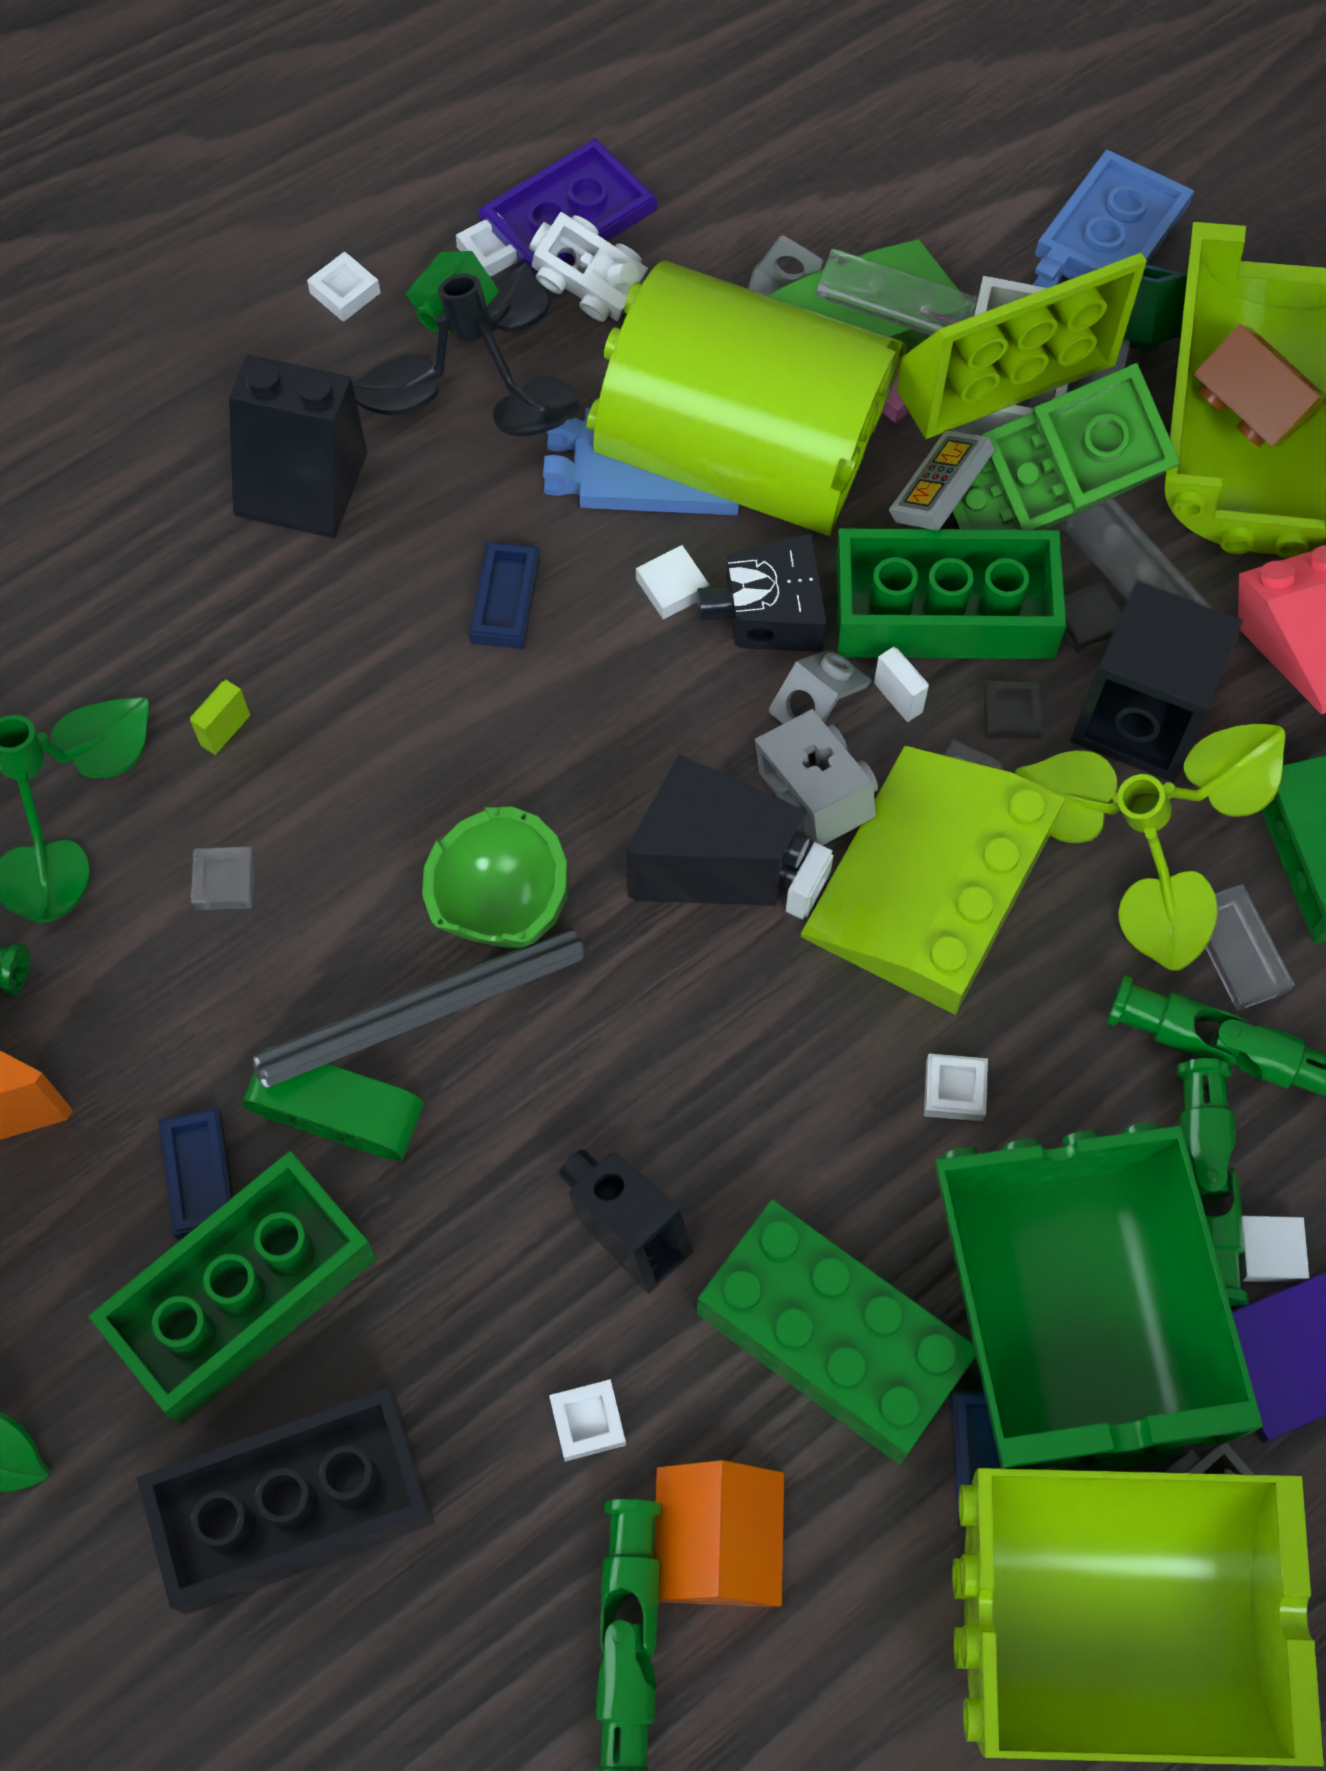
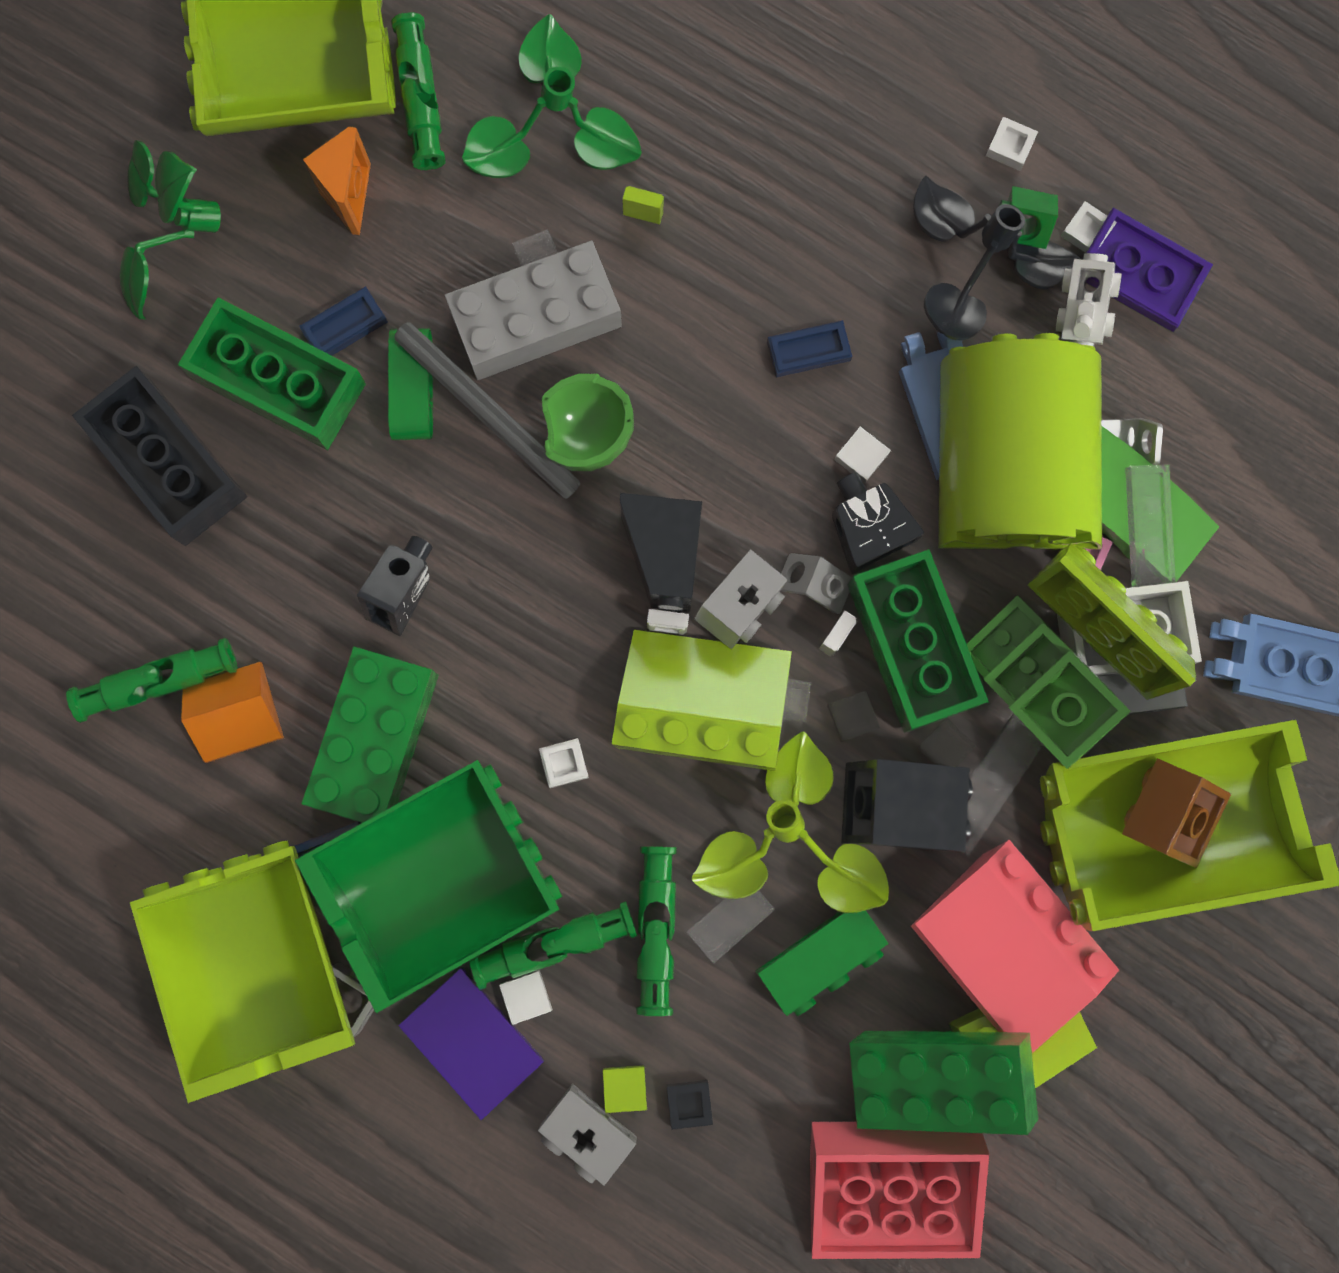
camera: 65 degrees right, 15 degrees up
(294, 445) = (853, 164): black slope -> none
(302, 902) = (534, 310): none -> light grey brick
(587, 1420) = (273, 611): white tile -> none
(942, 480) = (995, 606): tile -> none
(1157, 308) = (1221, 707): dark green brick -> none

